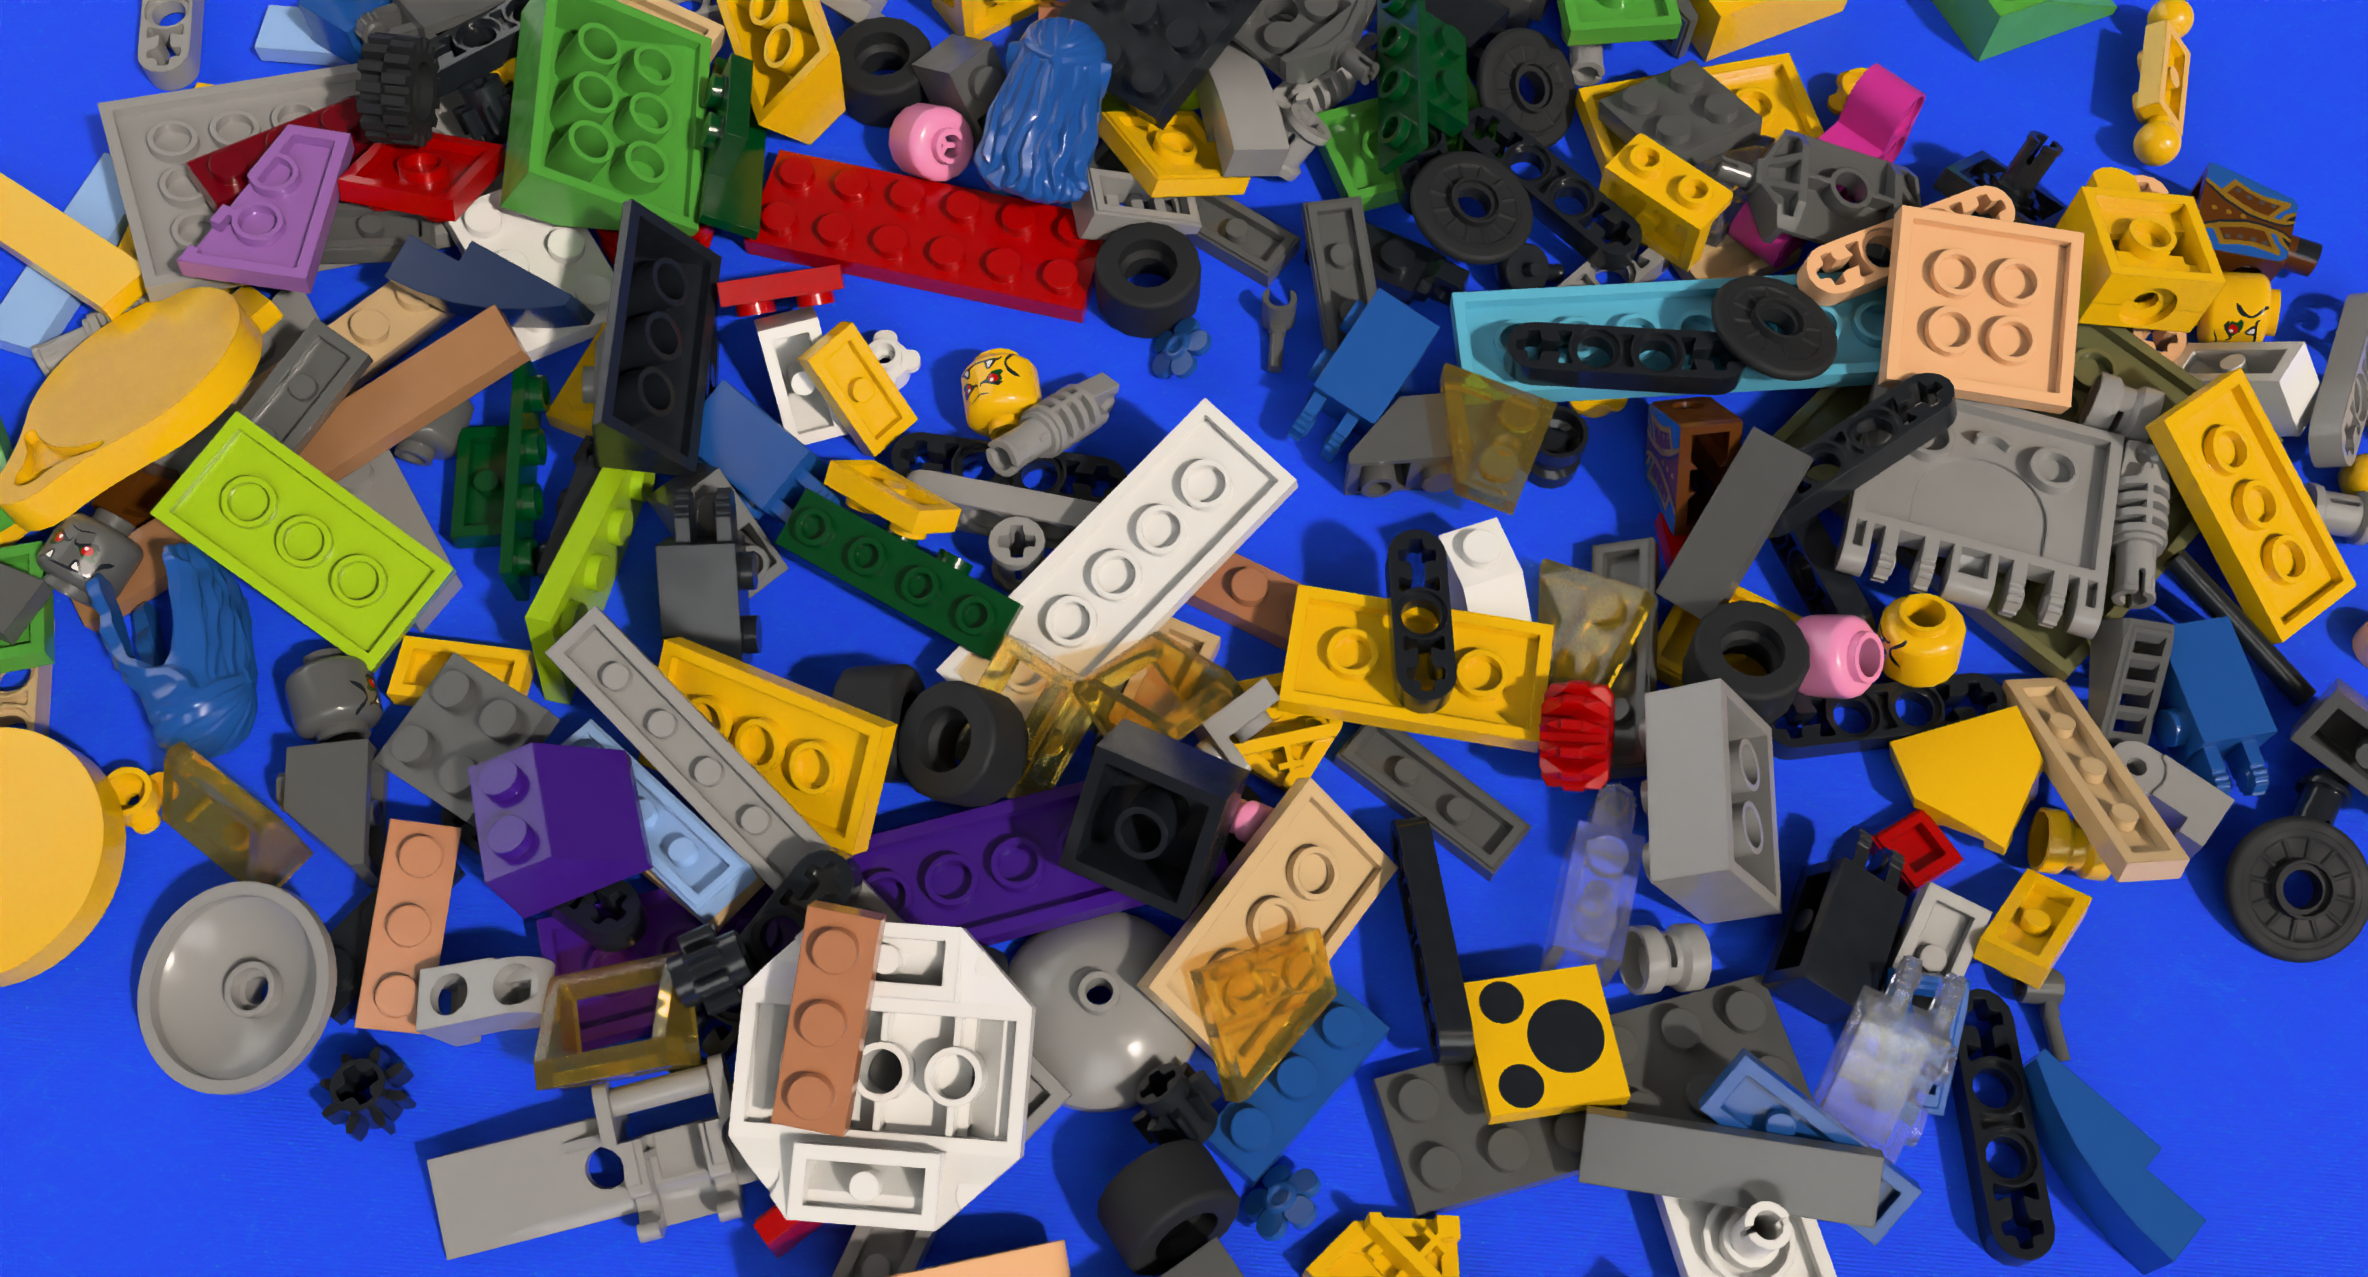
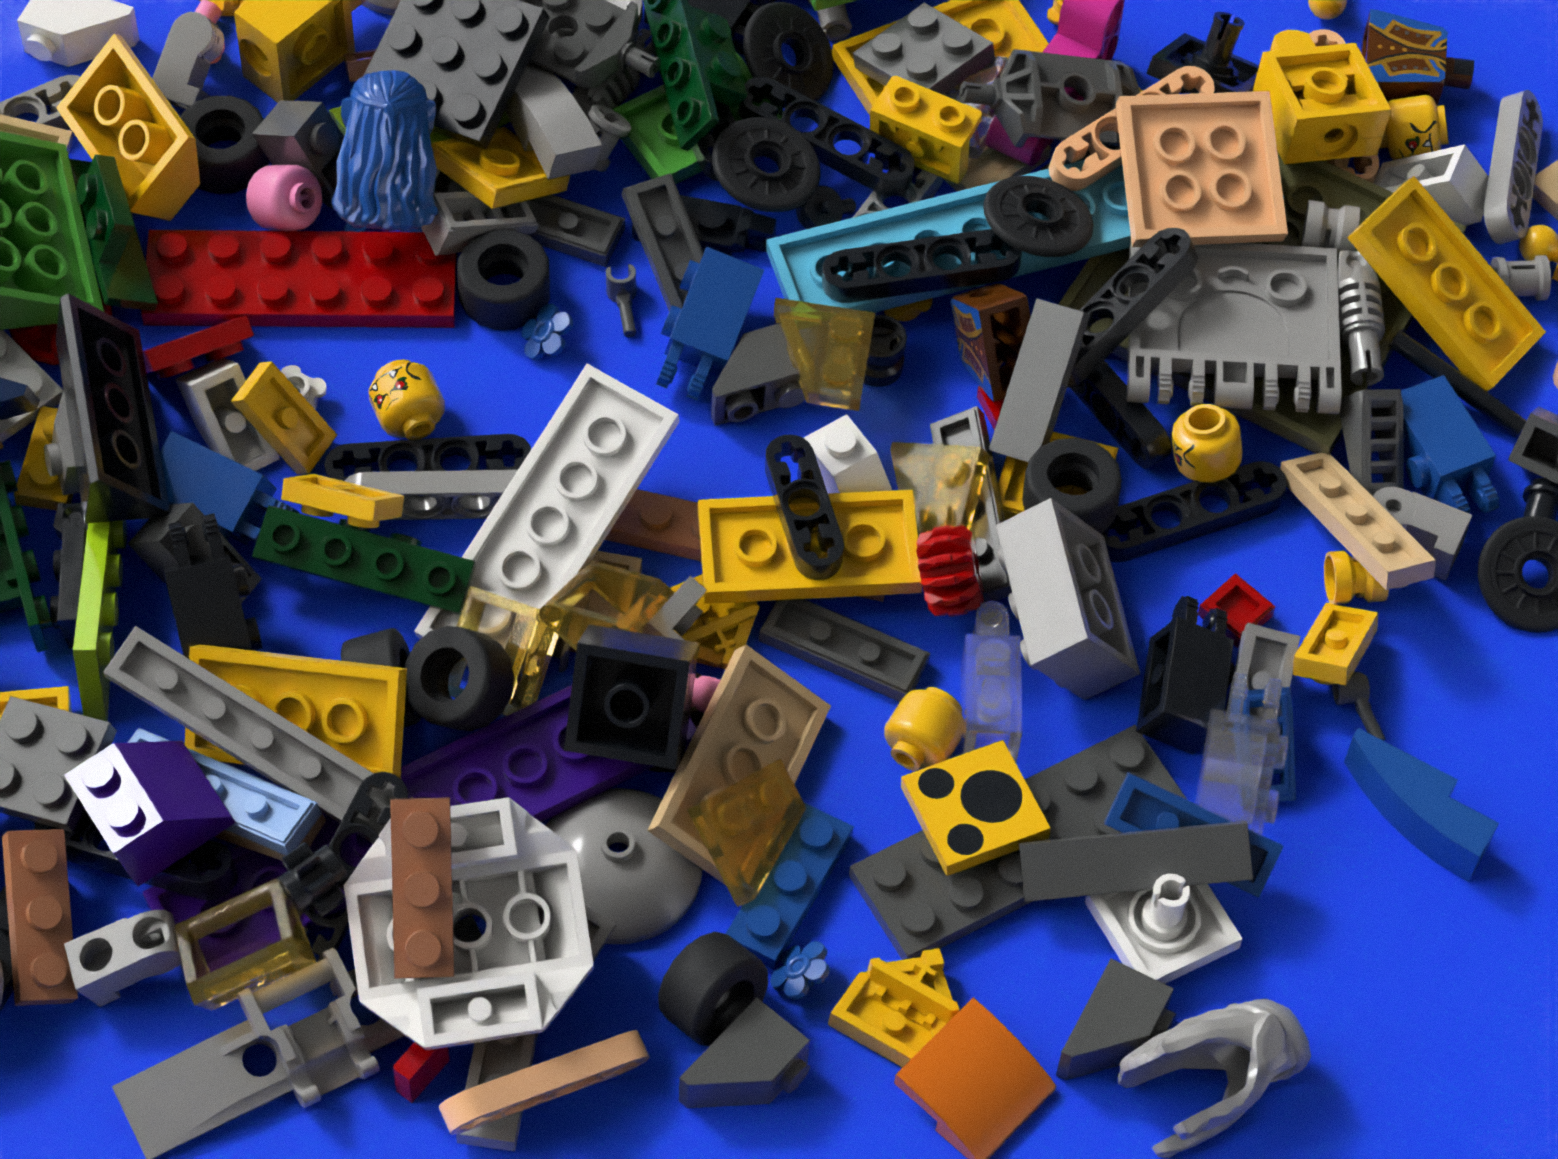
camera: 15 degrees left, 5 degrees down
(351, 1102) = (46, 1050): black gear -> none
(1003, 548) = (463, 525): light grey bush -> none
(1054, 424) = (459, 414): light grey hinge -> none
(1176, 1104) = (698, 912): black gear -> none
(1432, 942) = (870, 752): black beam -> none
(1504, 924) = (924, 728): none -> yellow head
(1670, 958) = (1061, 726): light grey wheel -> none
(1843, 656) = (1146, 468): bright pink head -> none
(1973, 774) = (1269, 539): yellow slope -> none
(2008, 1125) = (1344, 795): black beam -> none

